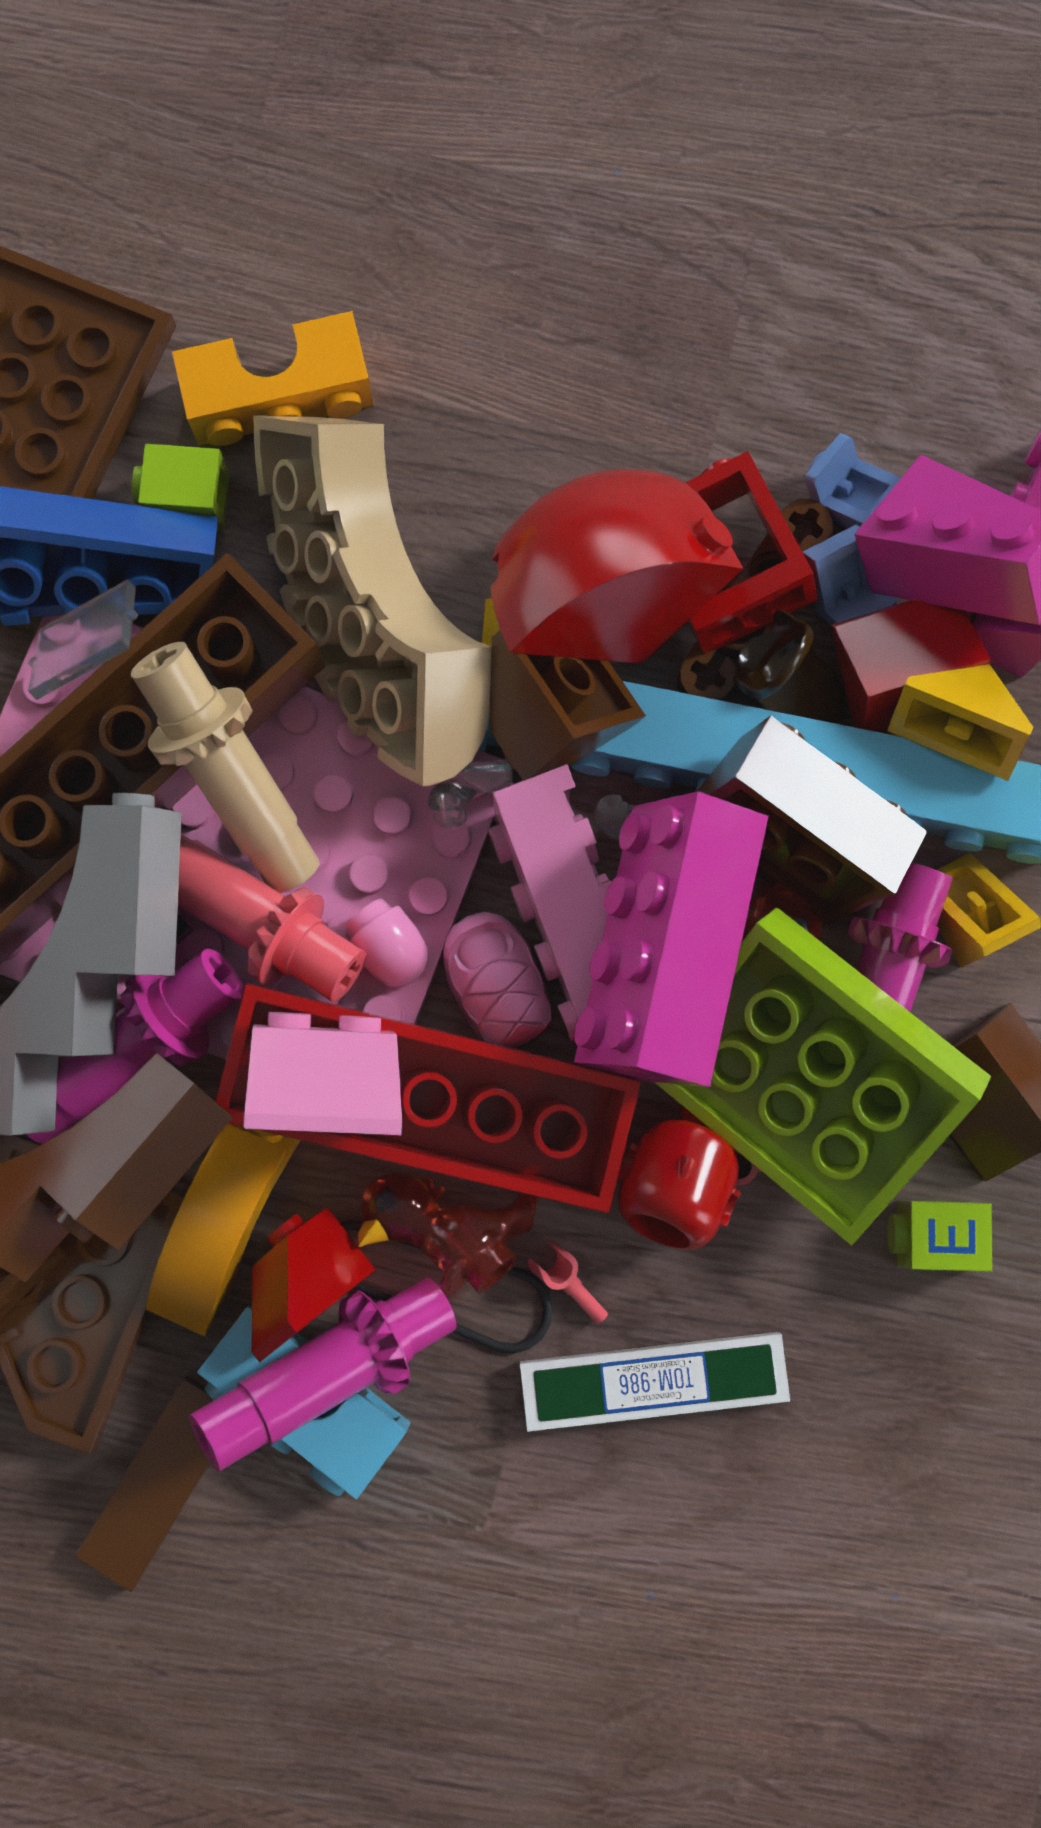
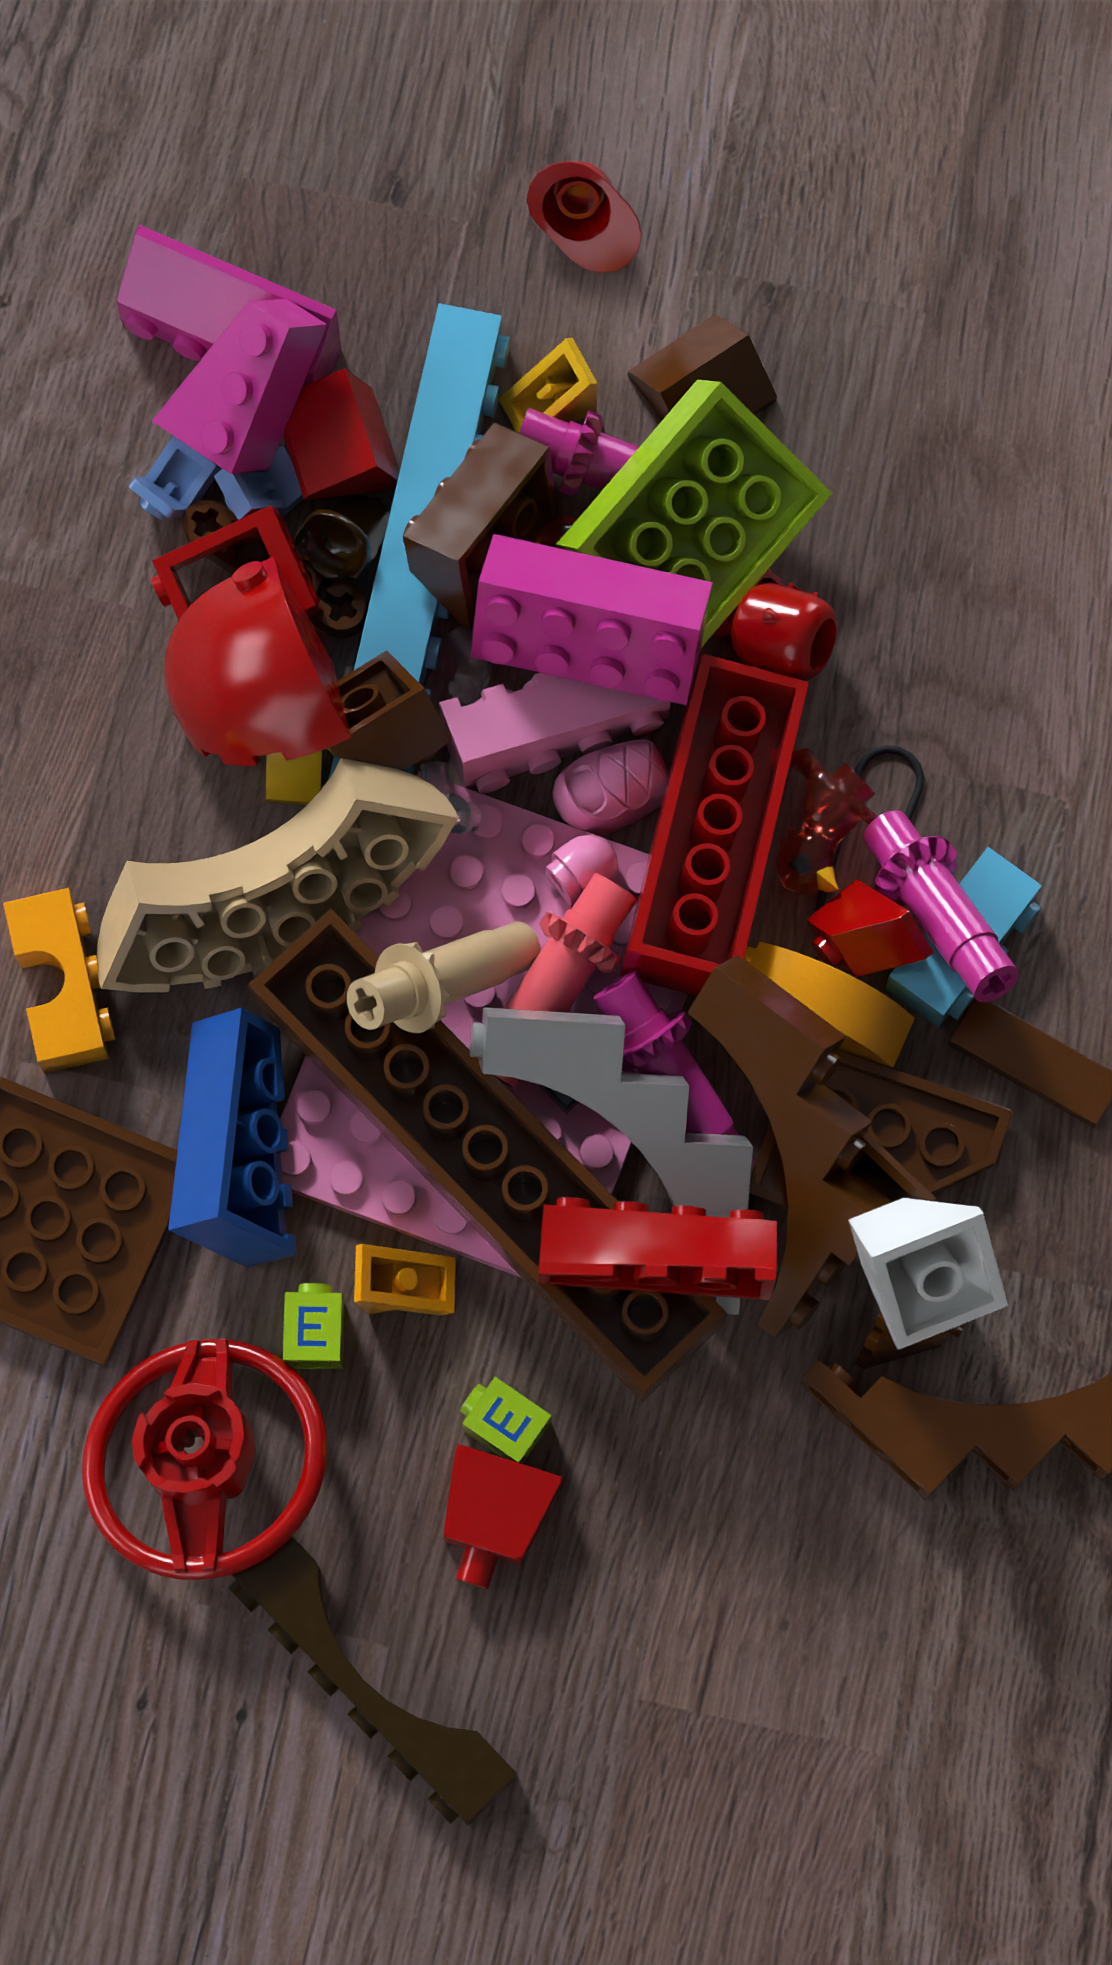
camera: 90 degrees left, 5 degrees down
(82, 639) = (316, 1119): clear piece -> none
(182, 480) = (158, 1060): lime brick -> none
(323, 1076) = (709, 869): bright pink slope -> none
(564, 1276) = (859, 732): coral hand -> none
(654, 1381) = (944, 662): tile -> none
(941, 1235) = (822, 429): lime brick -> none
(964, 717) = (394, 389): yellow slope -> none

